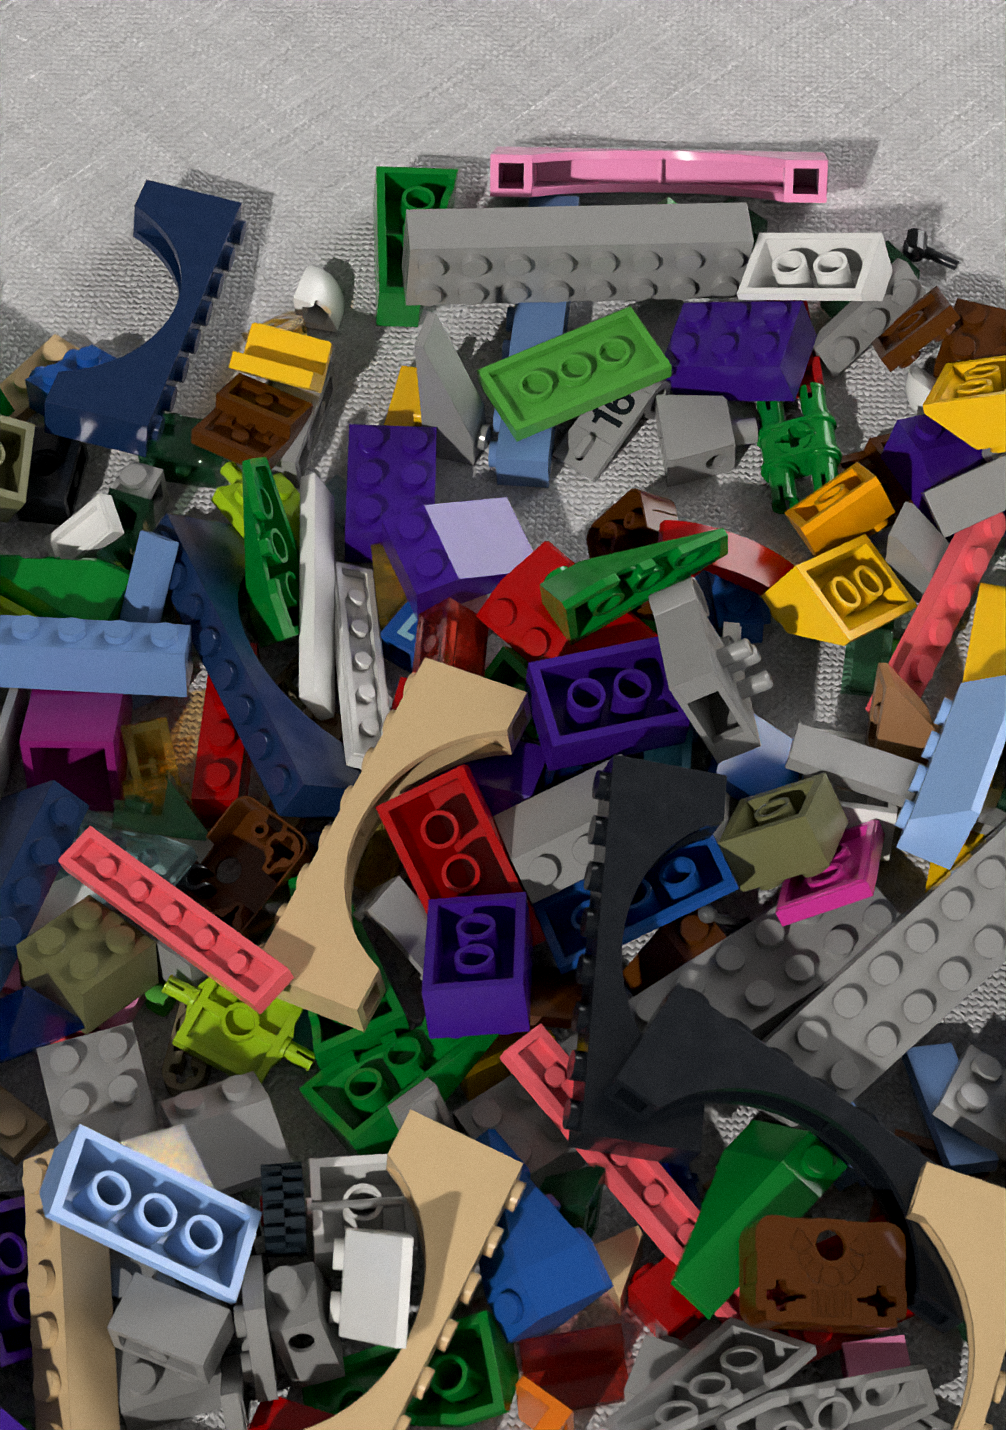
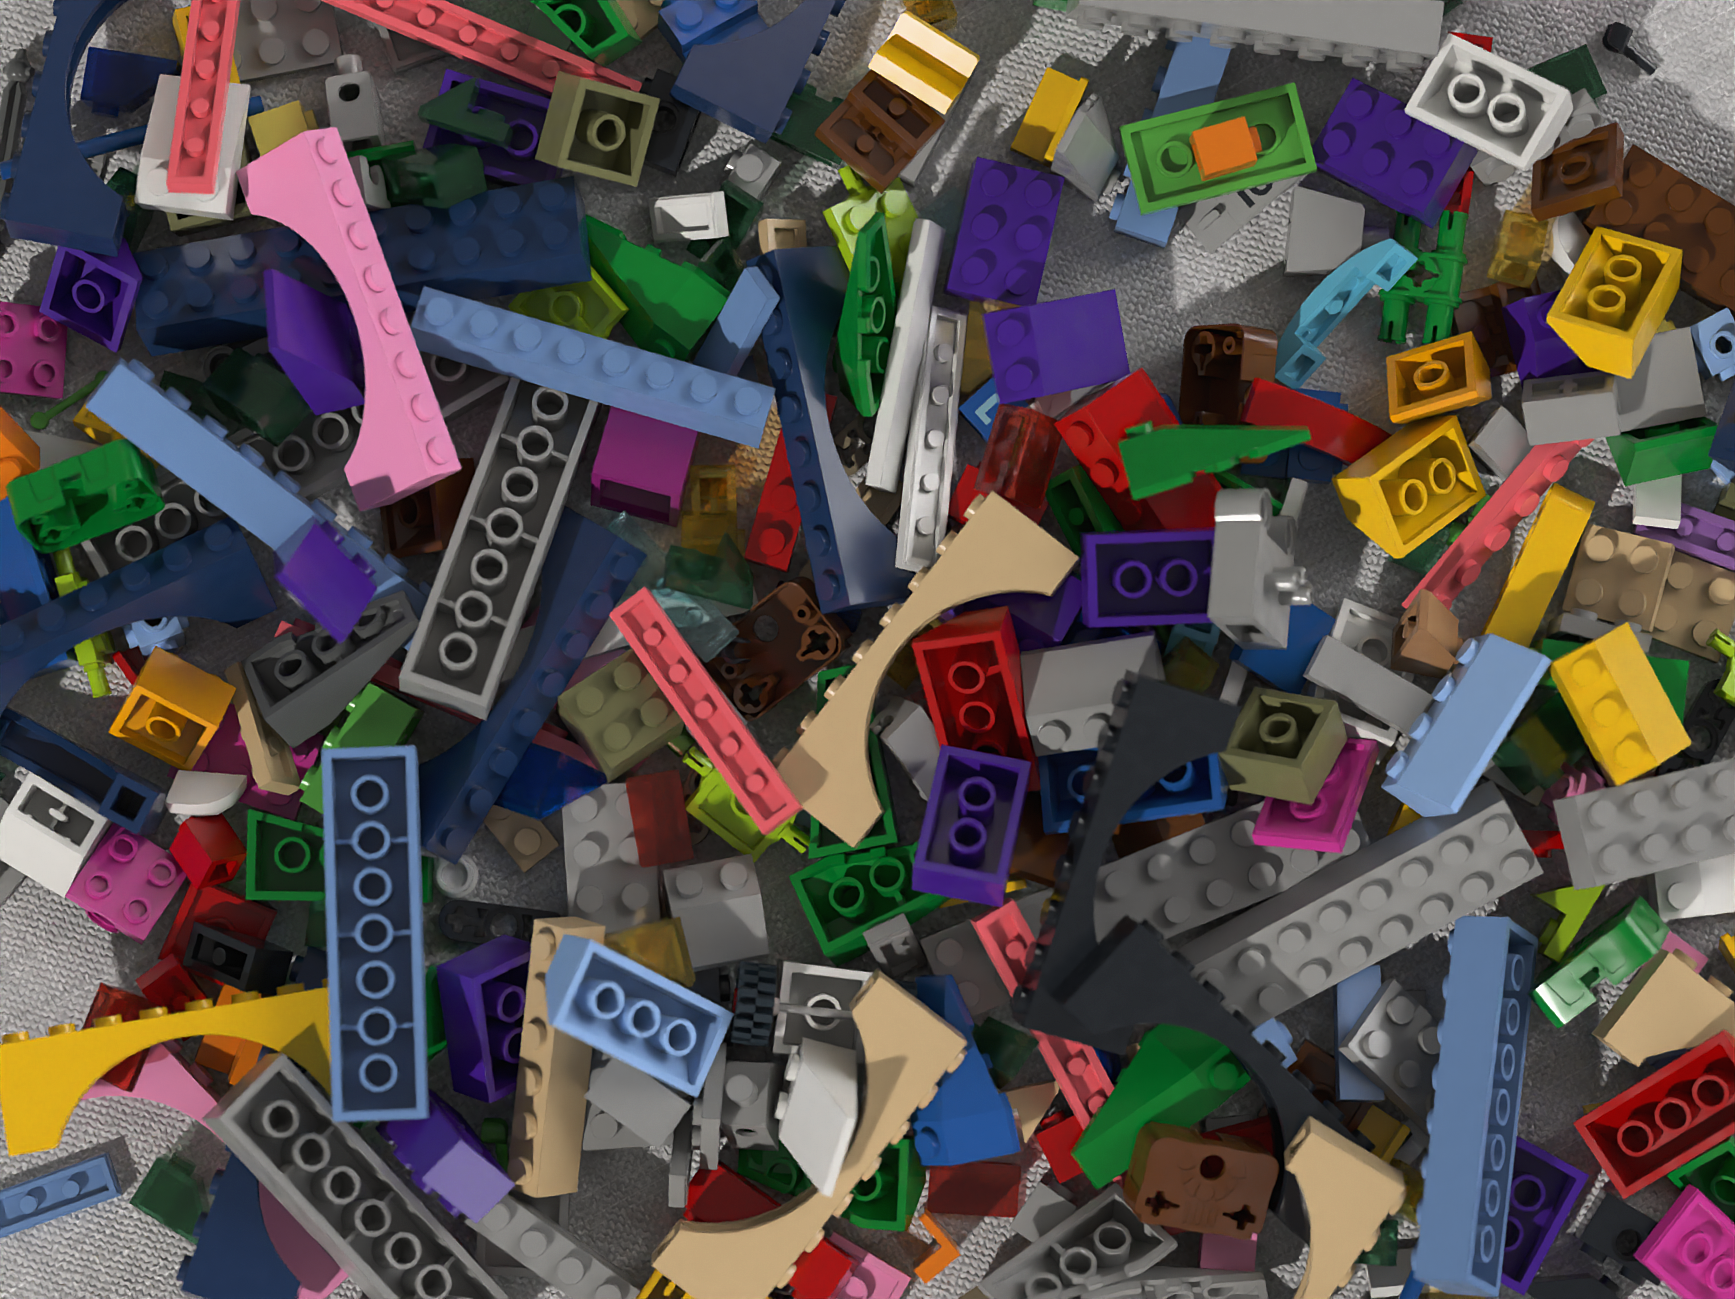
camera: 15 degrees right, 30 degrees up
(147, 1051) = (659, 818): none -> clear red panel
(578, 355) = (1225, 148): none -> orange brick
(727, 464) = (1331, 302): none -> medium azure slope
(878, 405) = (1517, 249): none -> clear yellow brick

